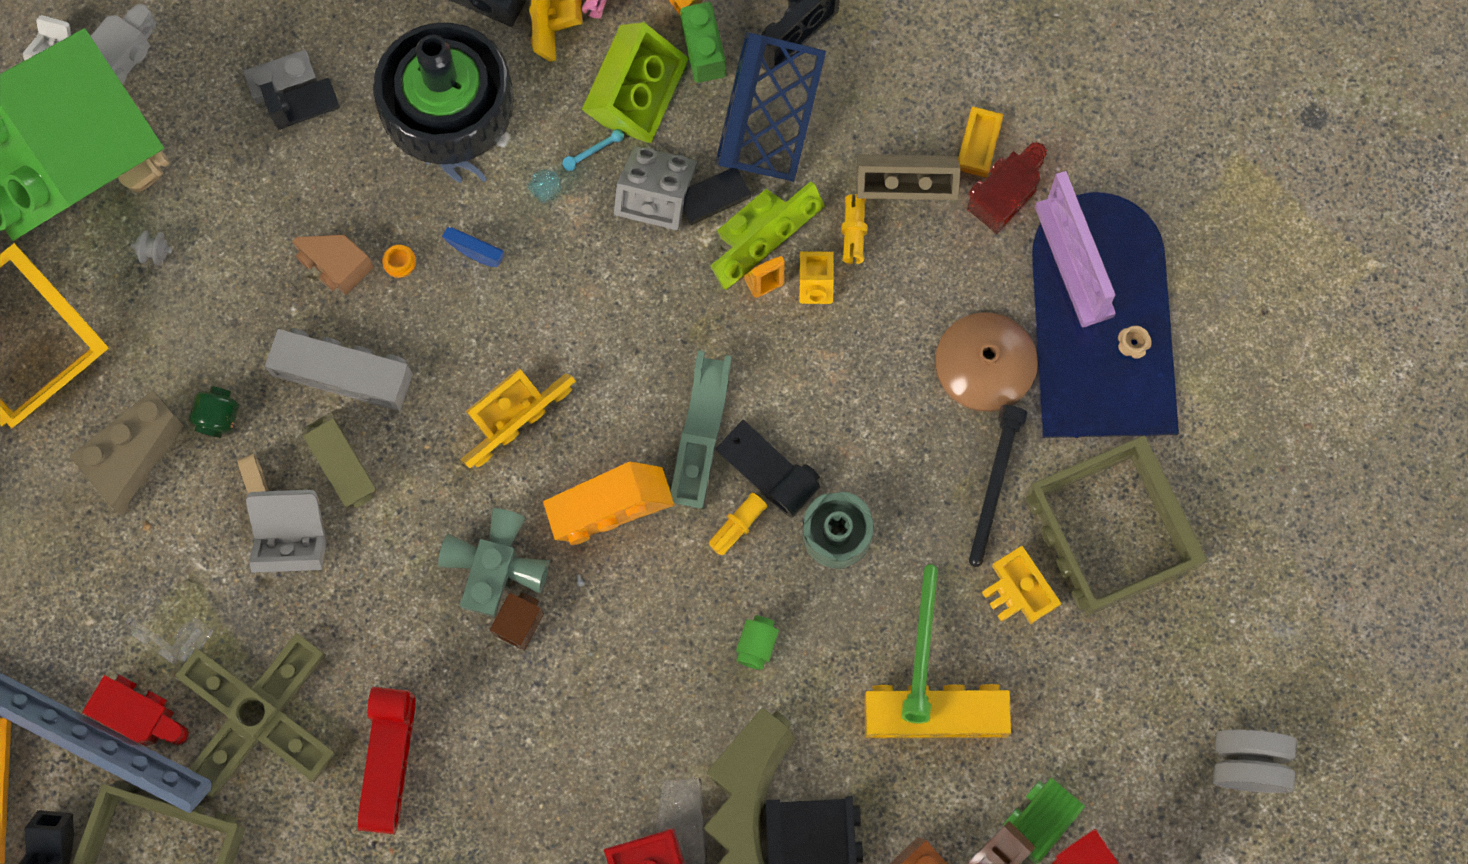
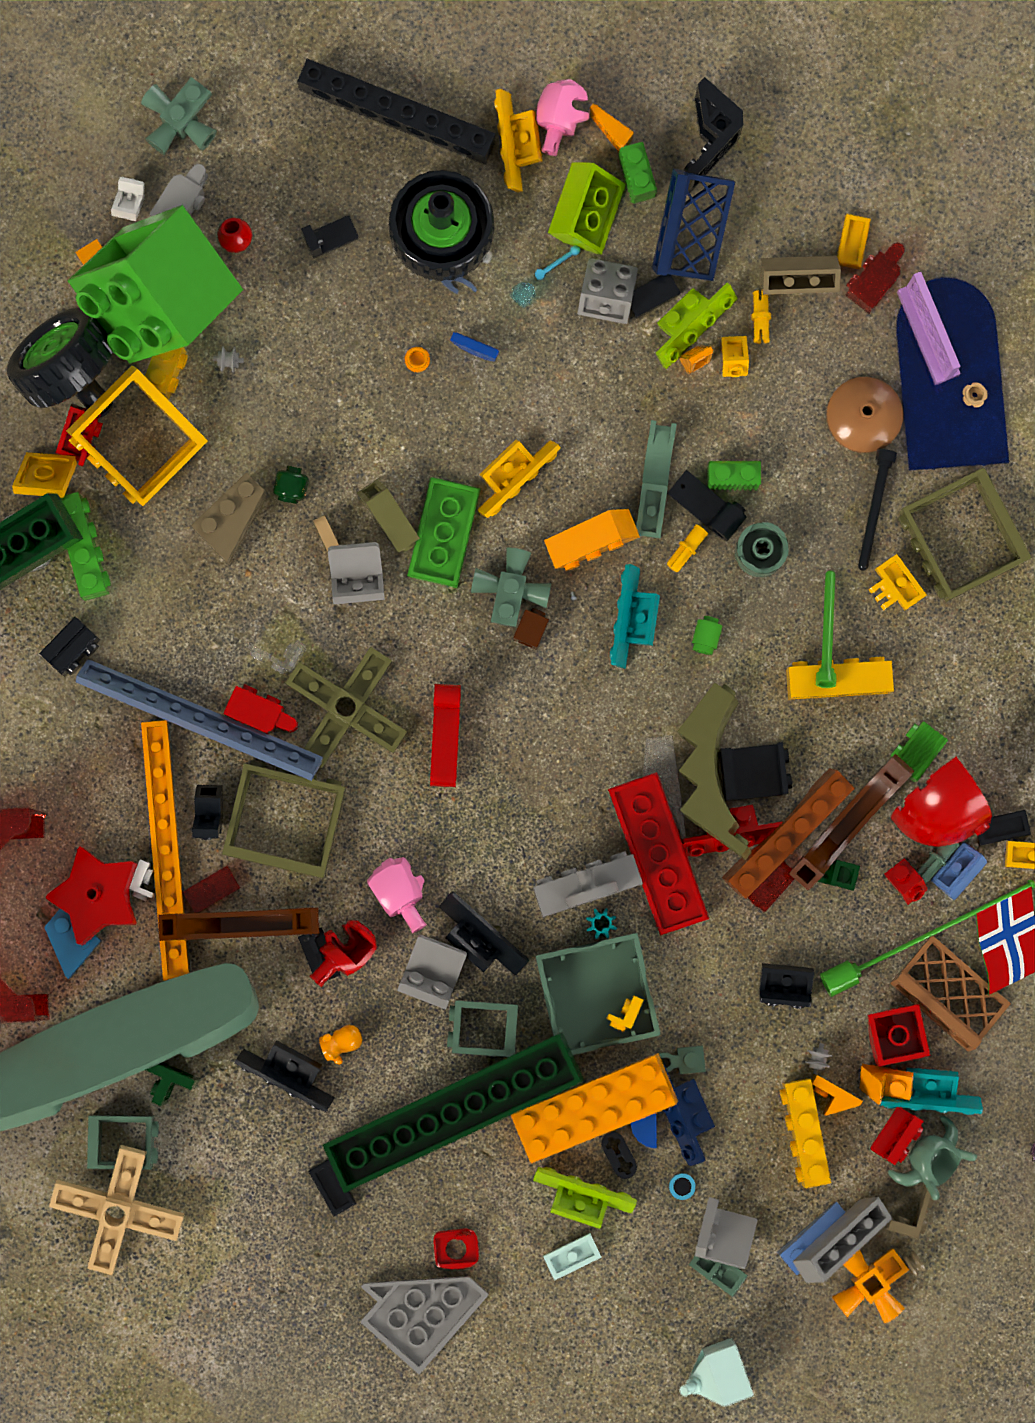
camera: 10 degrees left, 10 degrees up
(67, 253) = (165, 369): none -> yellow brick
(177, 93) = (234, 235): none -> red piece
(285, 73) = (313, 213): light grey plate -> none
(336, 258) = (369, 360): medium nougat slope -> none
(339, 369) = (381, 447): light grey brick -> none
(412, 486) = (443, 532): none -> bright green tile
(659, 613) = (635, 617): none -> teal bracket
(806, 429) = (733, 475): none -> bright green brick

